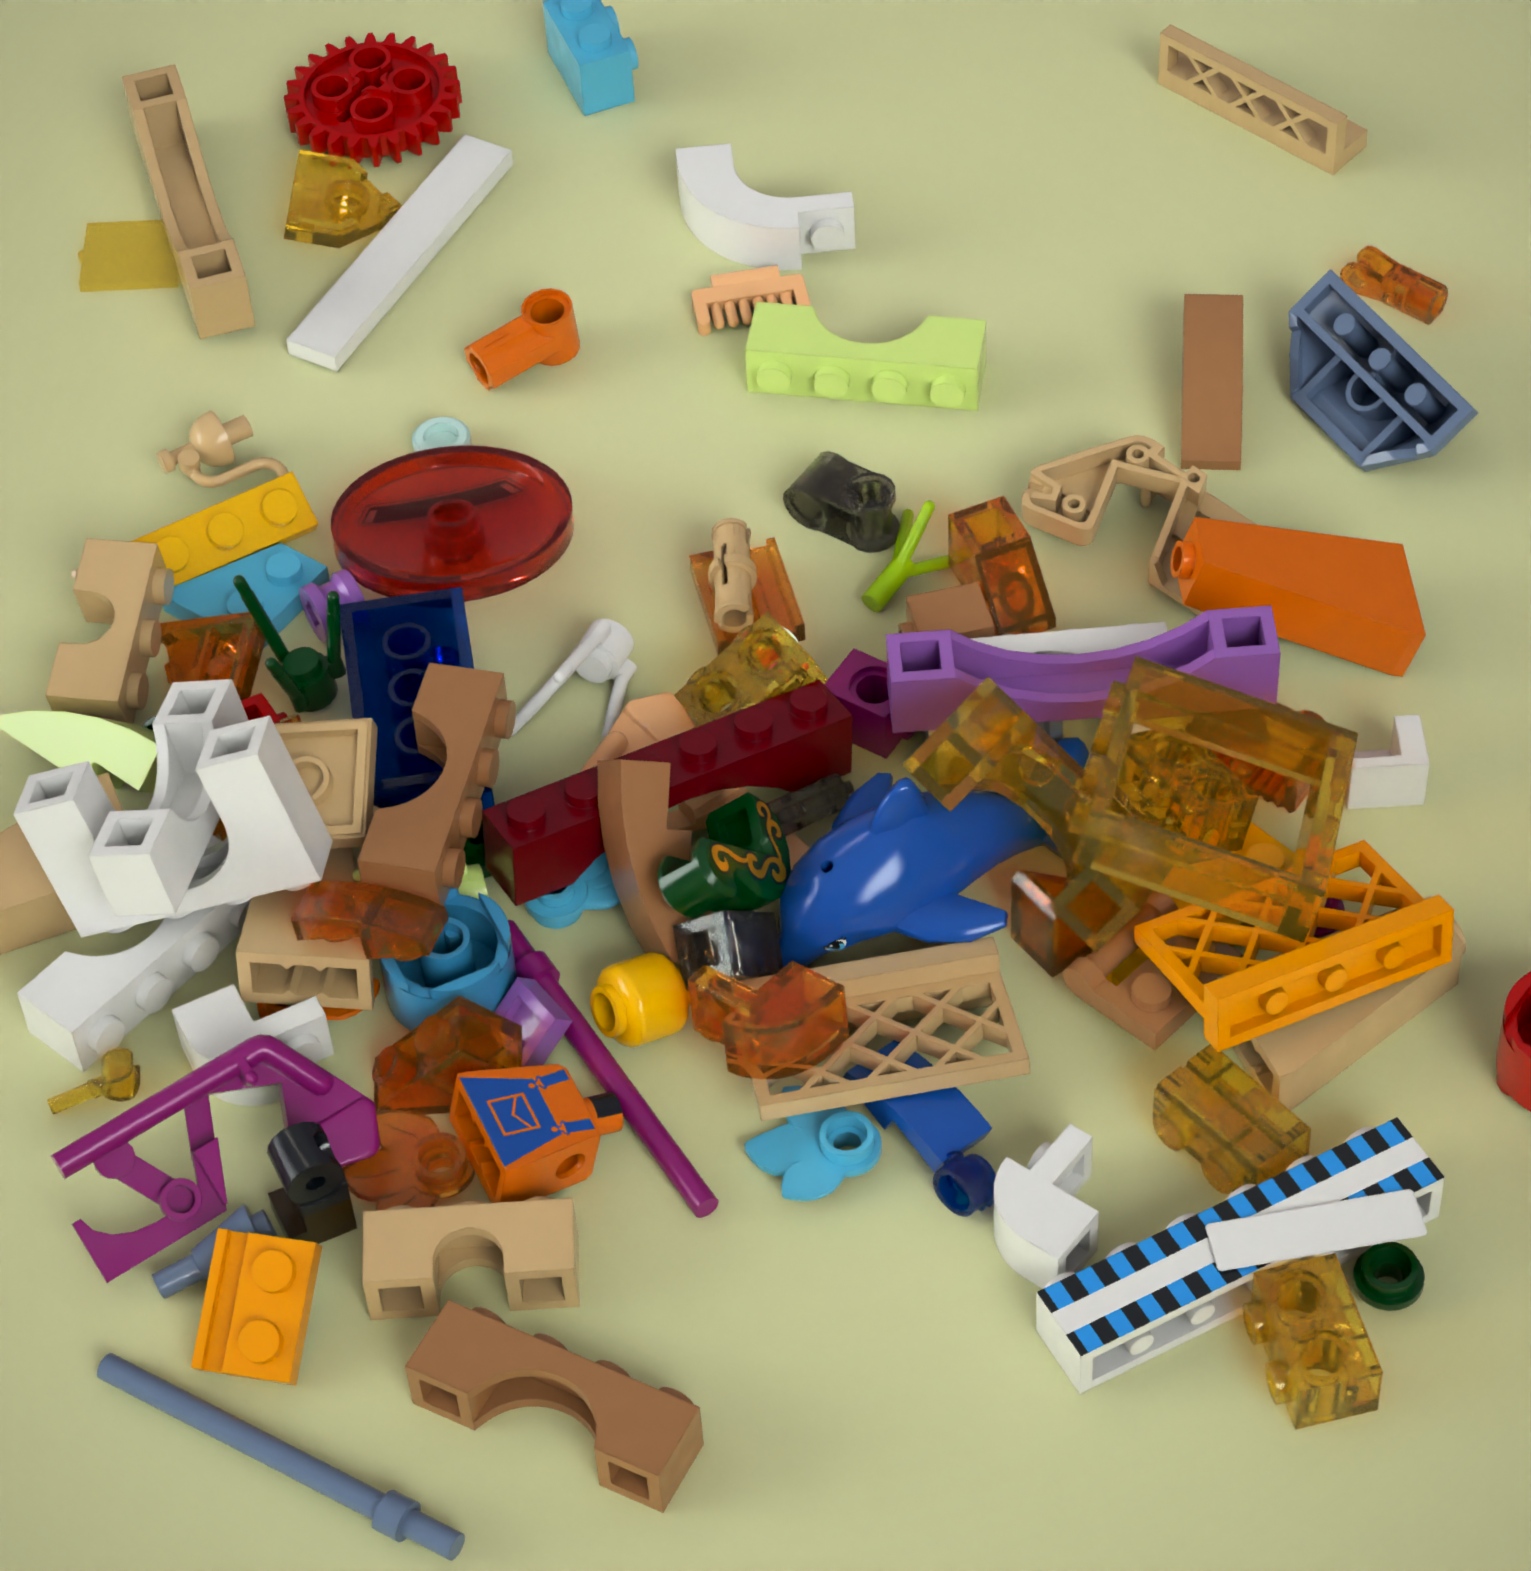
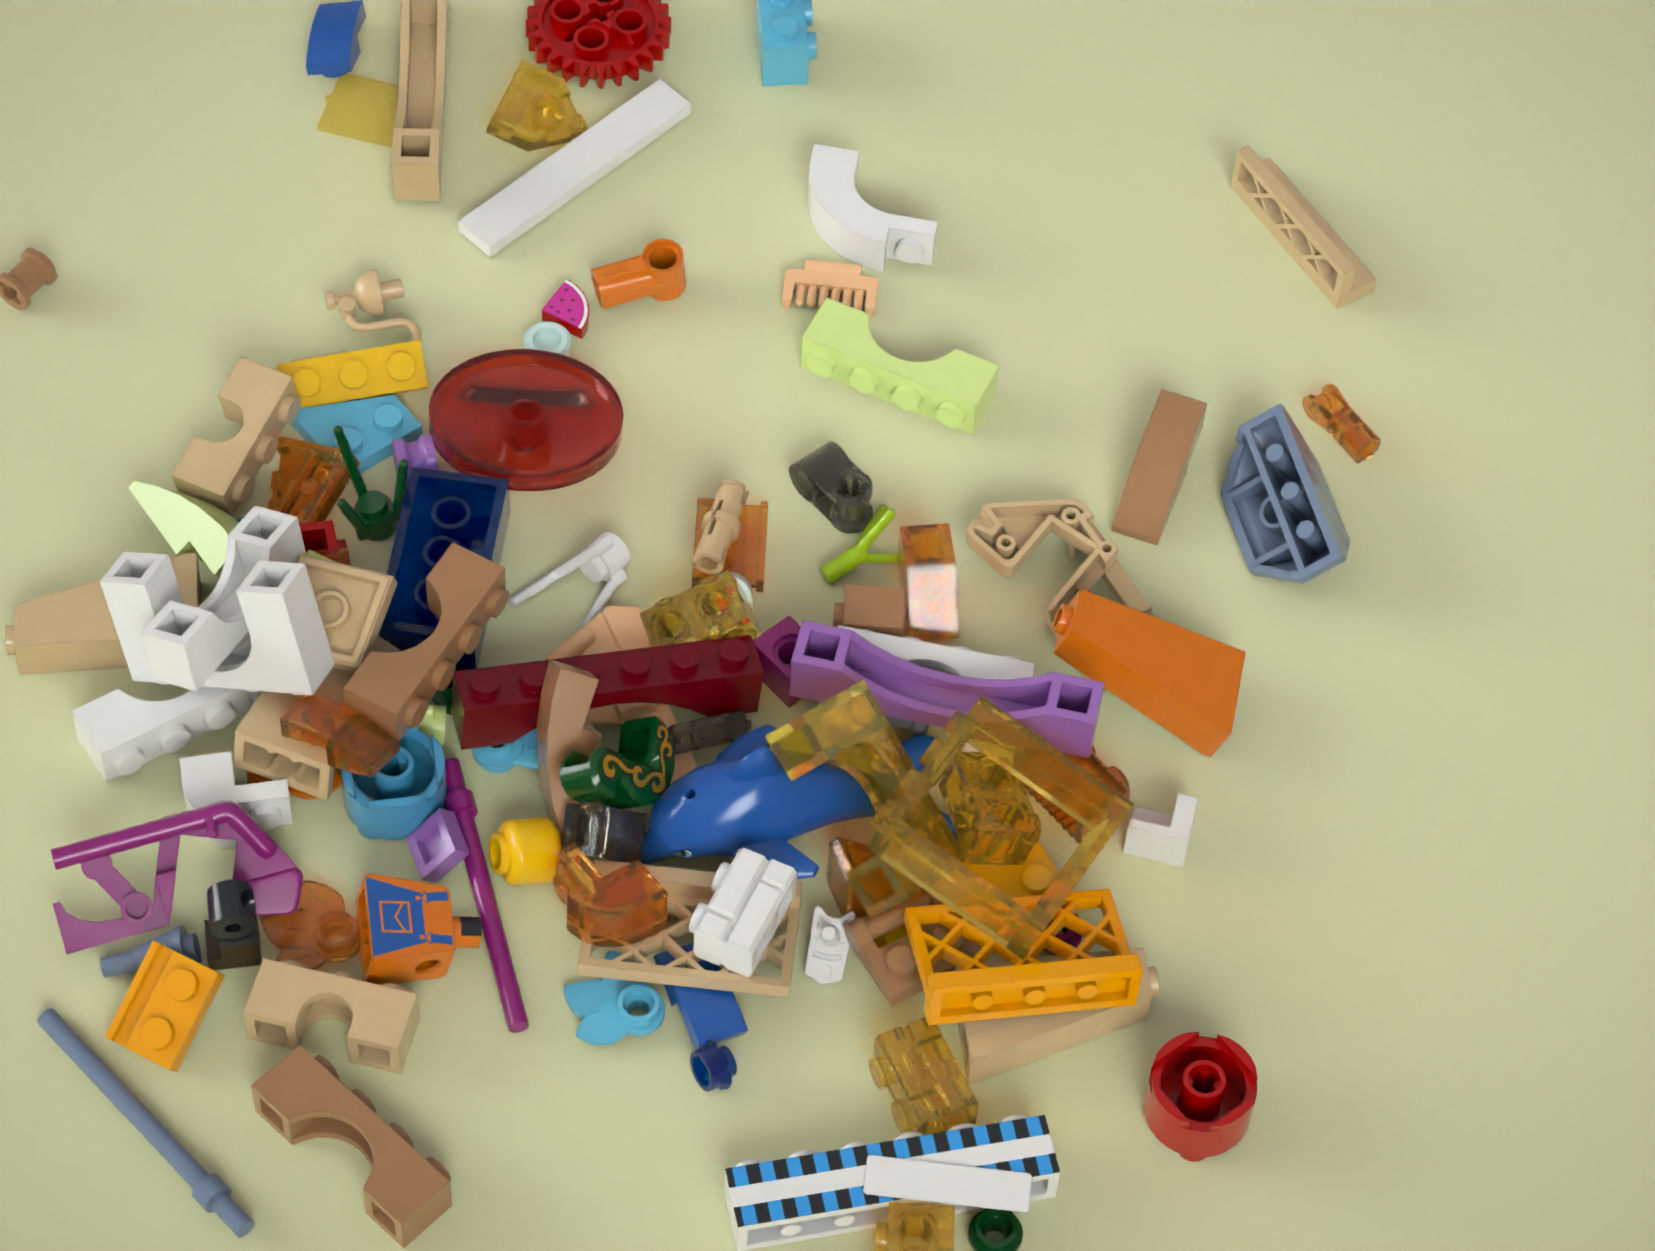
camera: 10 degrees right, 5 degrees up
(67, 188) = (334, 39): none -> blue slope
(117, 1082) = (126, 799): clear yellow hand -> none
(423, 1065) = (367, 847): clear orange slope -> none
(453, 397) = (569, 309): none -> tile
(942, 984) = (743, 912): none -> white brick
(1036, 1216) = (753, 1102): white brick -> none
(1049, 1008) = (828, 948): none -> white piece

